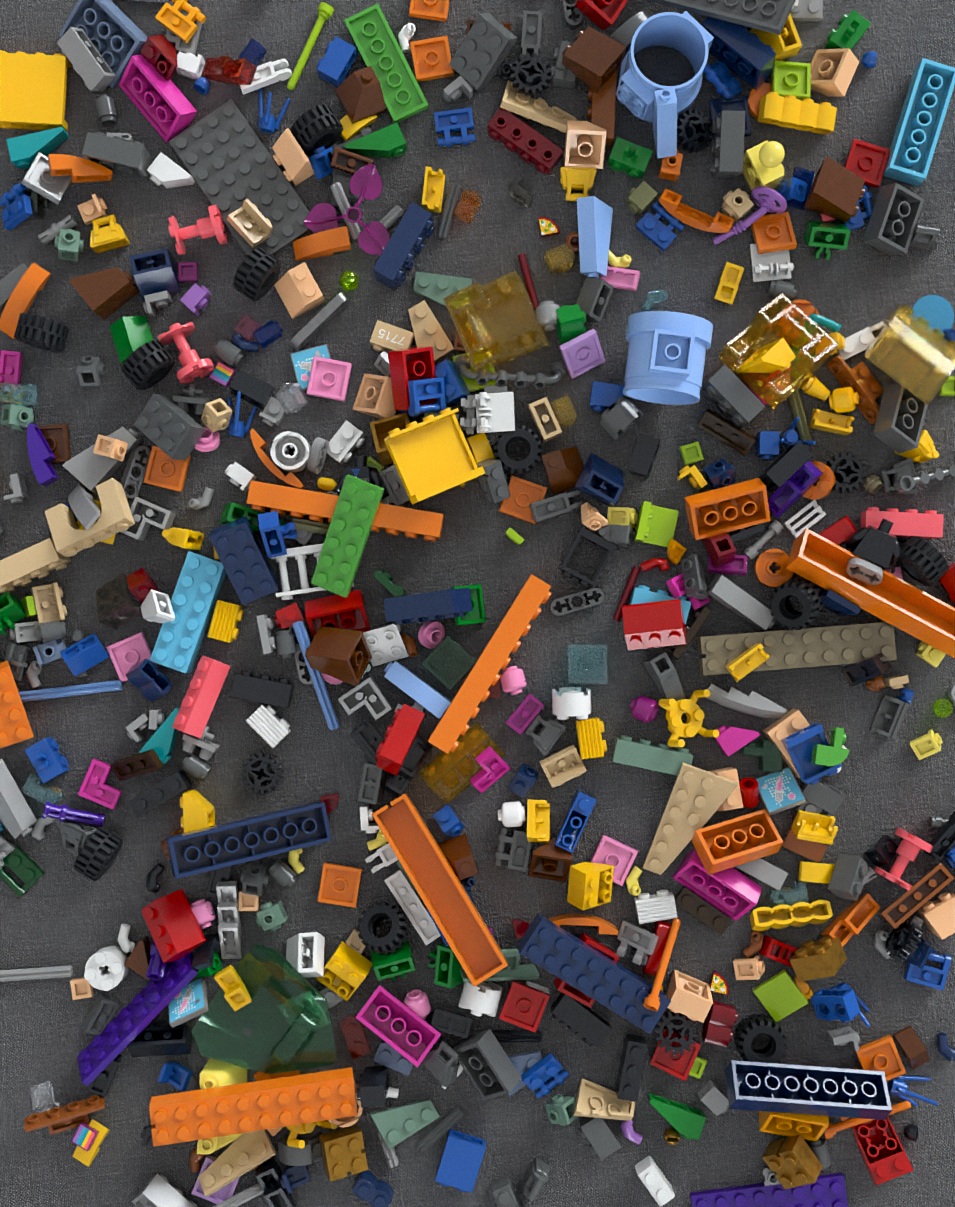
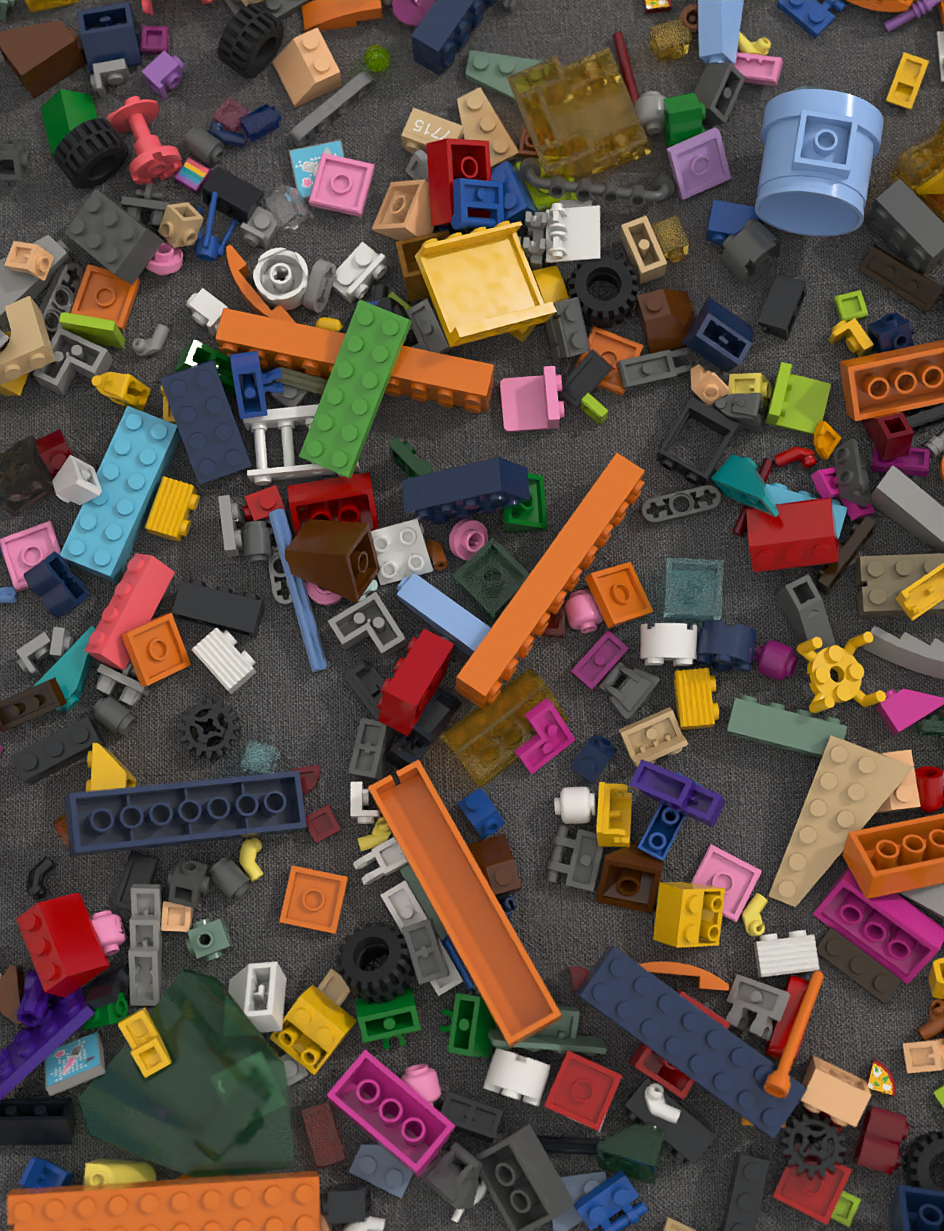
camera: 10 degrees right, 10 degrees down
(159, 496) = (93, 329): none -> lime tile
(221, 722) = (156, 649): none -> orange plate
(297, 792) = (259, 758): none -> clear light blue brick
(342, 834) = (322, 824): none -> dark red plate
(416, 920) = (425, 951): none -> dark grey hinge
(470, 533) = (532, 402): none -> bright pink bracket
(507, 515) = (585, 378): none -> black tile
(536, 669) = (619, 594): none -> orange plate
(560, 1042) = (633, 1151): none -> clear green slope
(573, 1012) = (657, 1104): none -> white arm
(580, 809) = (677, 793): none -> dark purple slope
(610, 703) = (726, 646): none -> dark blue brick
(621, 588) = (743, 483): none -> teal slope

